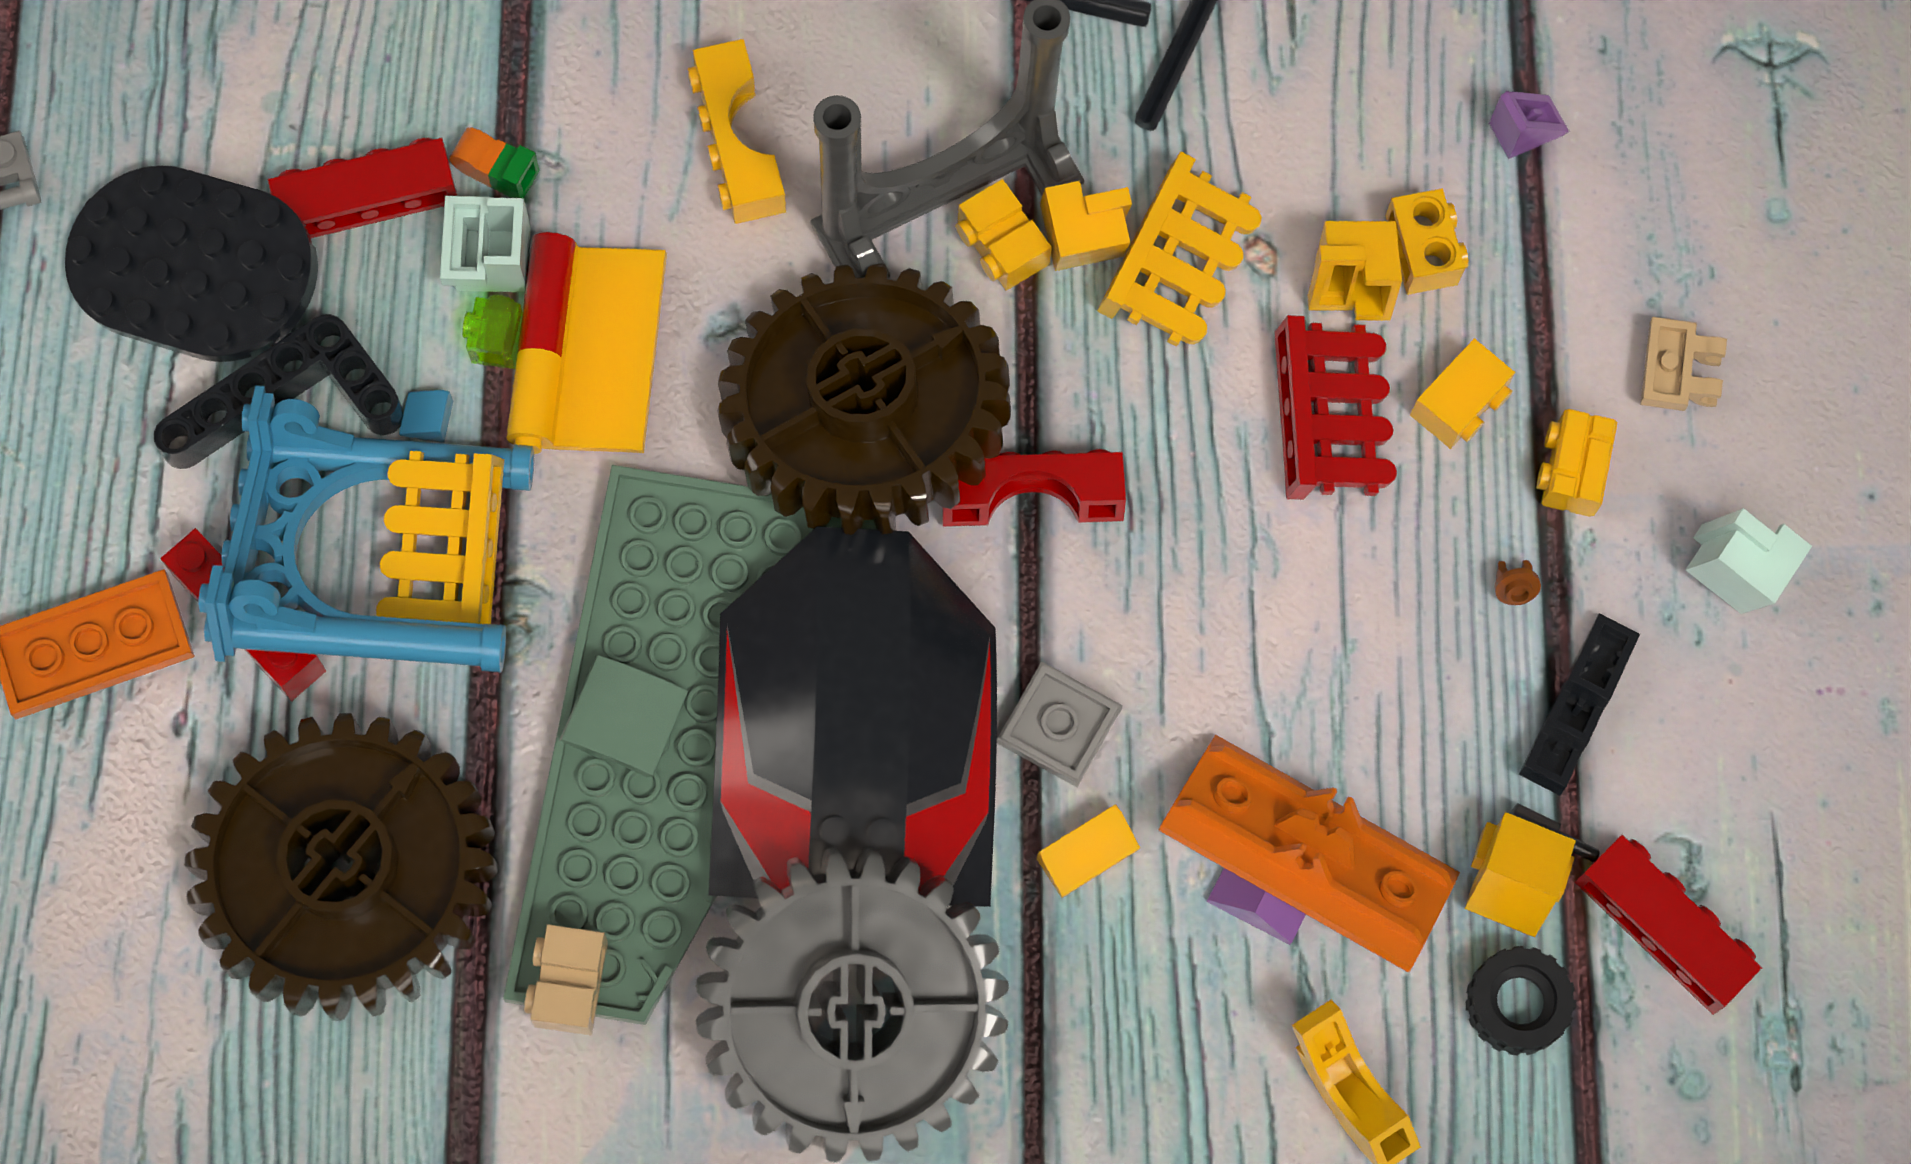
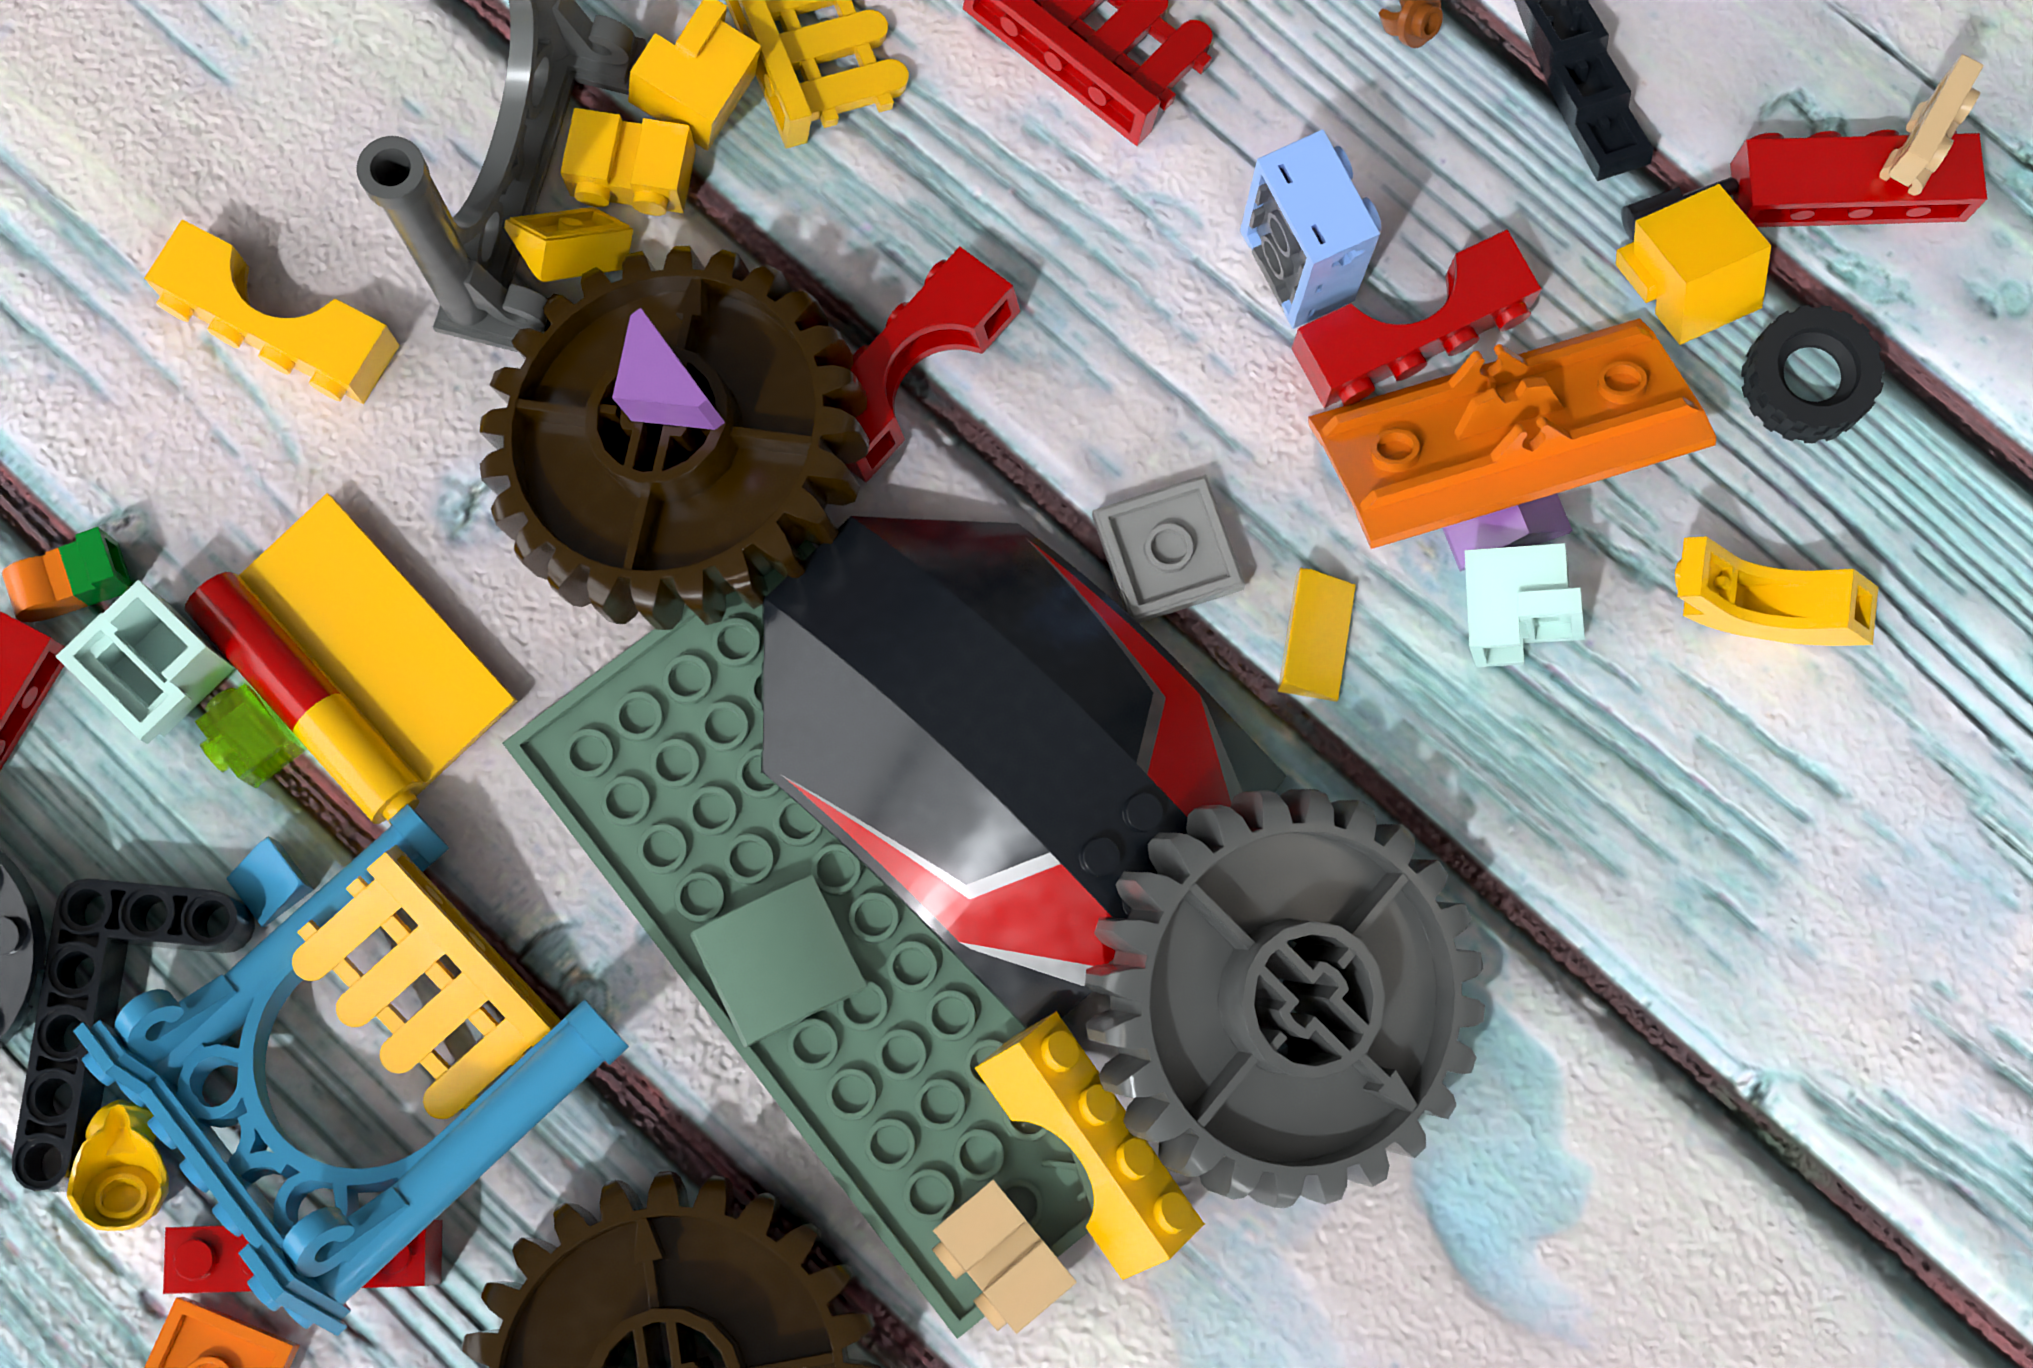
camera: 45 degrees left, 5 degrees up
(204, 478) = (118, 1171): none -> yellow hair
(663, 1024) = (1051, 1082): none -> yellow arch
(877, 357) = (656, 385): none -> medium lavender slope
(925, 246) = (570, 242): none -> yellow slope
(1209, 940) = (1519, 599): none -> light aqua plate
(1275, 727) = (1353, 352): none -> red arch
(1316, 631) = (1309, 227): none -> light blue piece
(1740, 925) = (1934, 126): none -> tan plate

